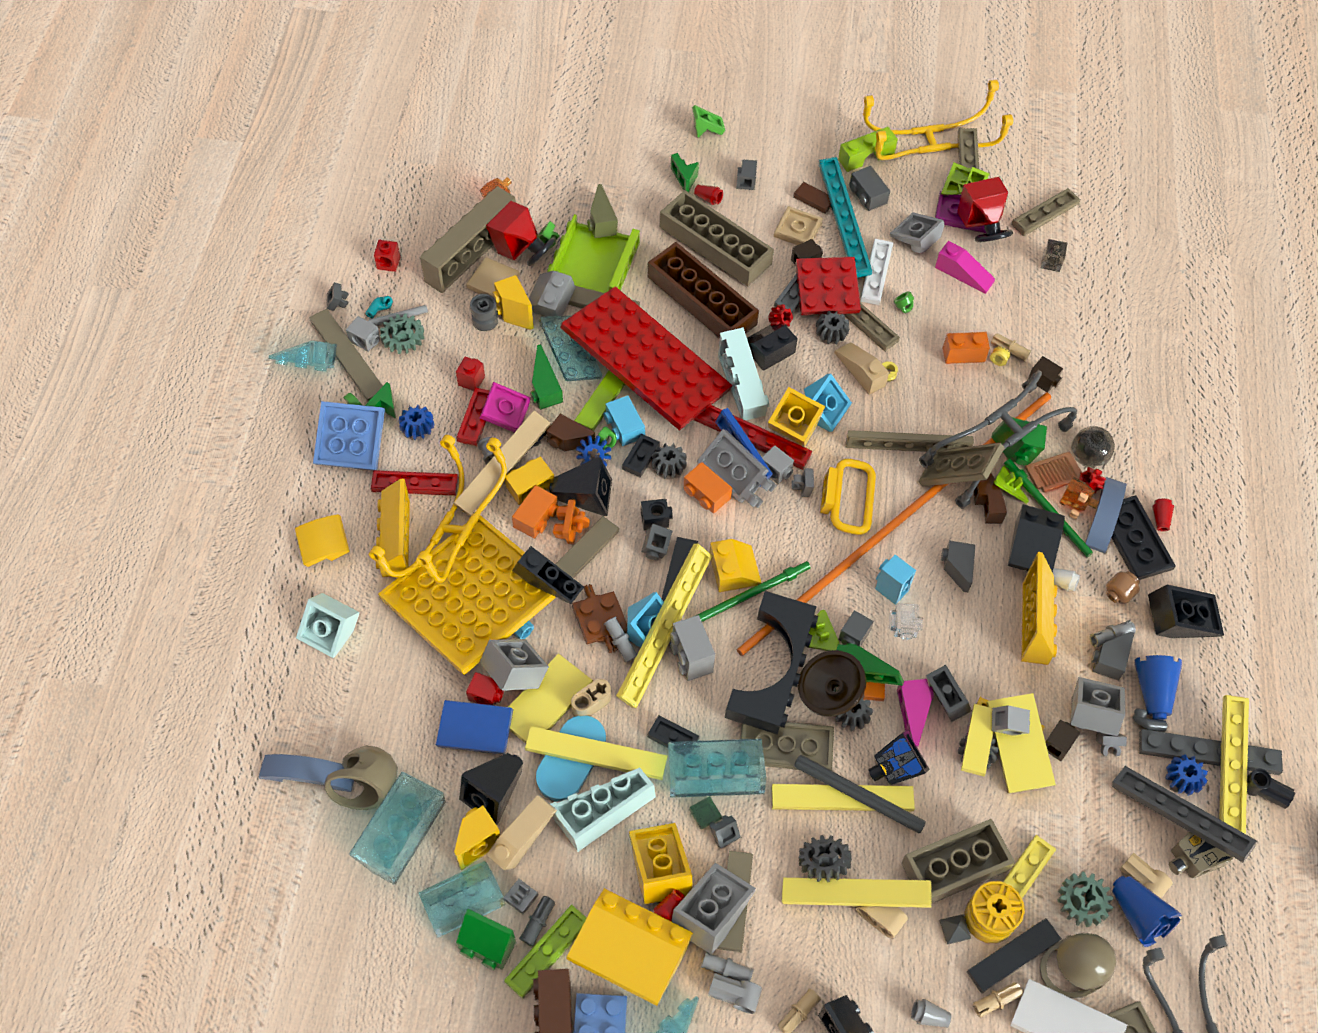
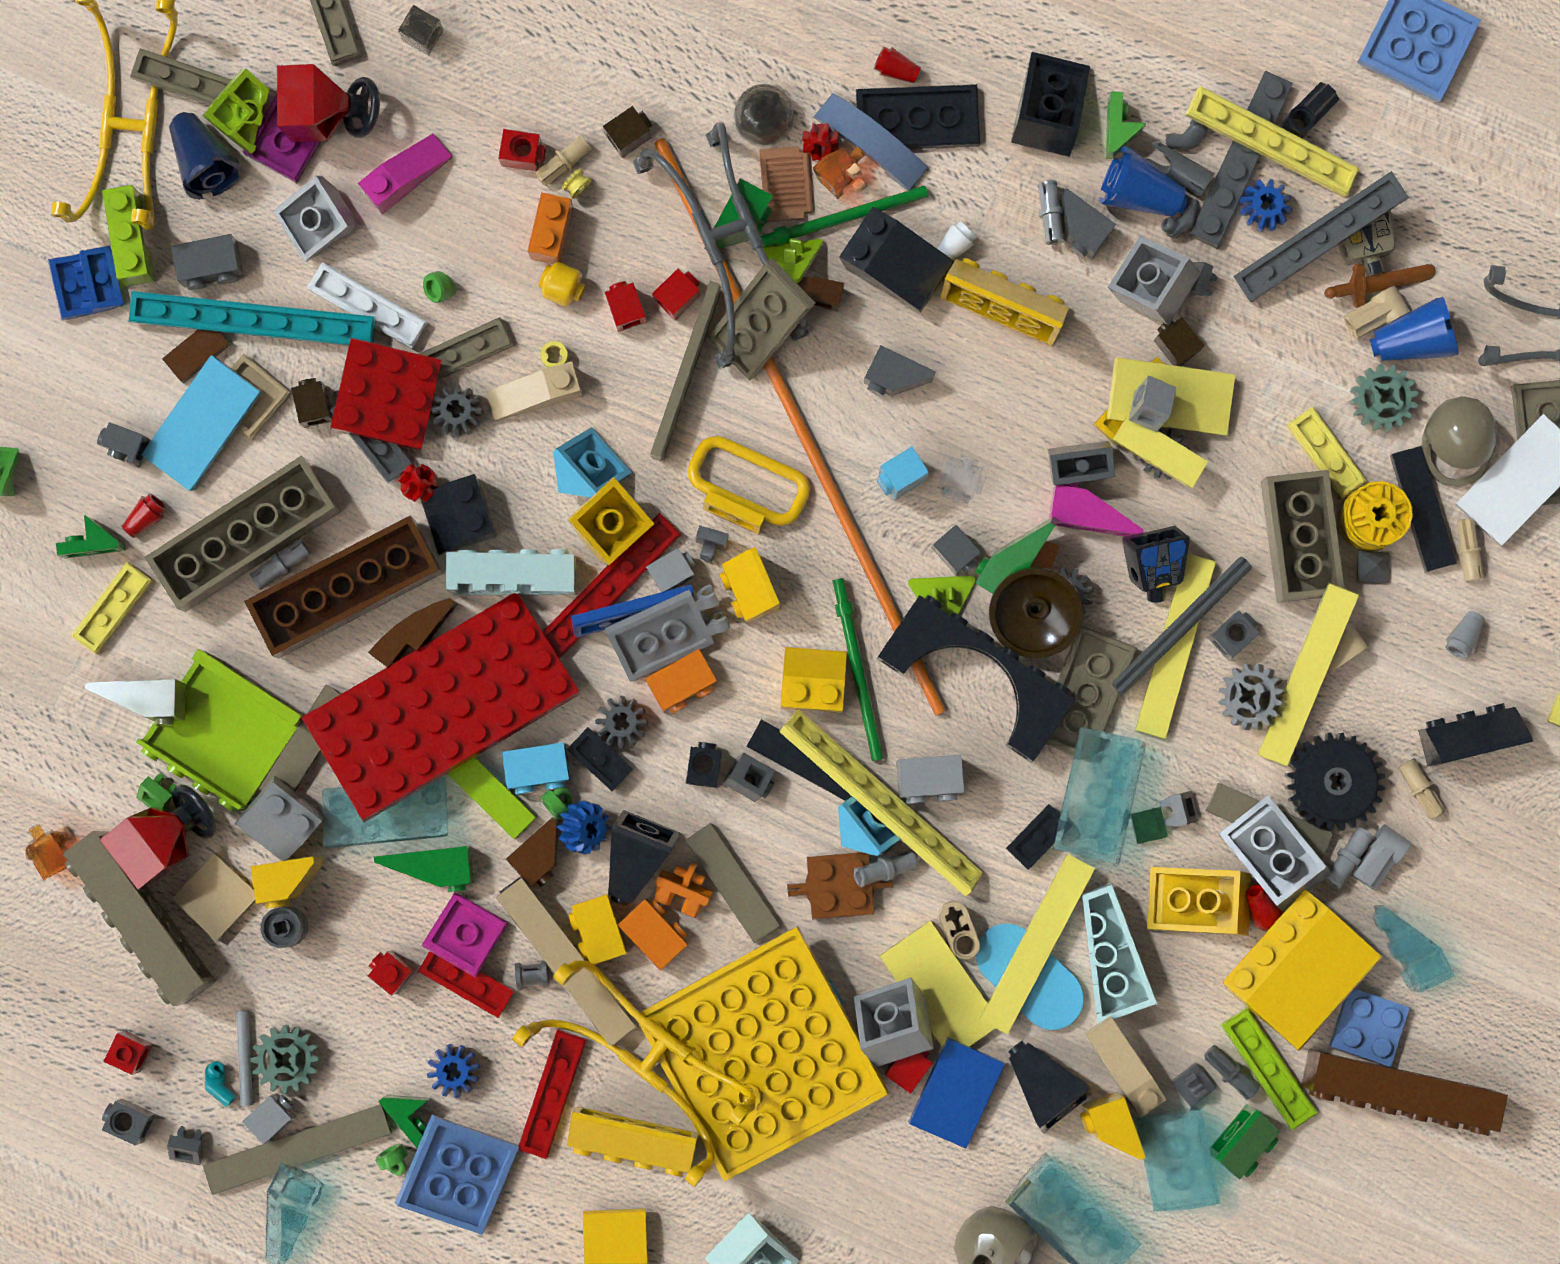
camera: 70 degrees left, 25 degrees up
(345, 266) = (141, 1121): none -> dark grey brick
(547, 576) = (784, 946): black slope -> none
(647, 192) = (112, 608): none -> light yellow tile
(690, 336) = (412, 631): none -> reddish brown slope
(714, 267) = (280, 564): none -> light grey pin
(773, 206) = (201, 423): none -> medium azure tile
(785, 510) = (750, 586): none -> yellow slope
(798, 946) = (1356, 778): none -> black gear
(829, 137) = (85, 283): none -> blue slope
(862, 825) = (1222, 641): none -> dark grey brick
(926, 170) = (201, 157): none -> dark blue cone
(934, 361) = (561, 284): none -> yellow head
(935, 399) = (625, 306): none -> red brick
(955, 422) = (677, 293): none -> red brick
(1007, 321) = (512, 140): none -> red brick
(1122, 587) = (991, 170): medium nougat head -> none
(1160, 859) = (1361, 285): none -> dark orange sword
(1183, 713) = (1183, 170): none -> dark grey piece
(1194, 660) = (1118, 132): none -> bright green slope
(1207, 712) = (1189, 139): none -> dark grey arm

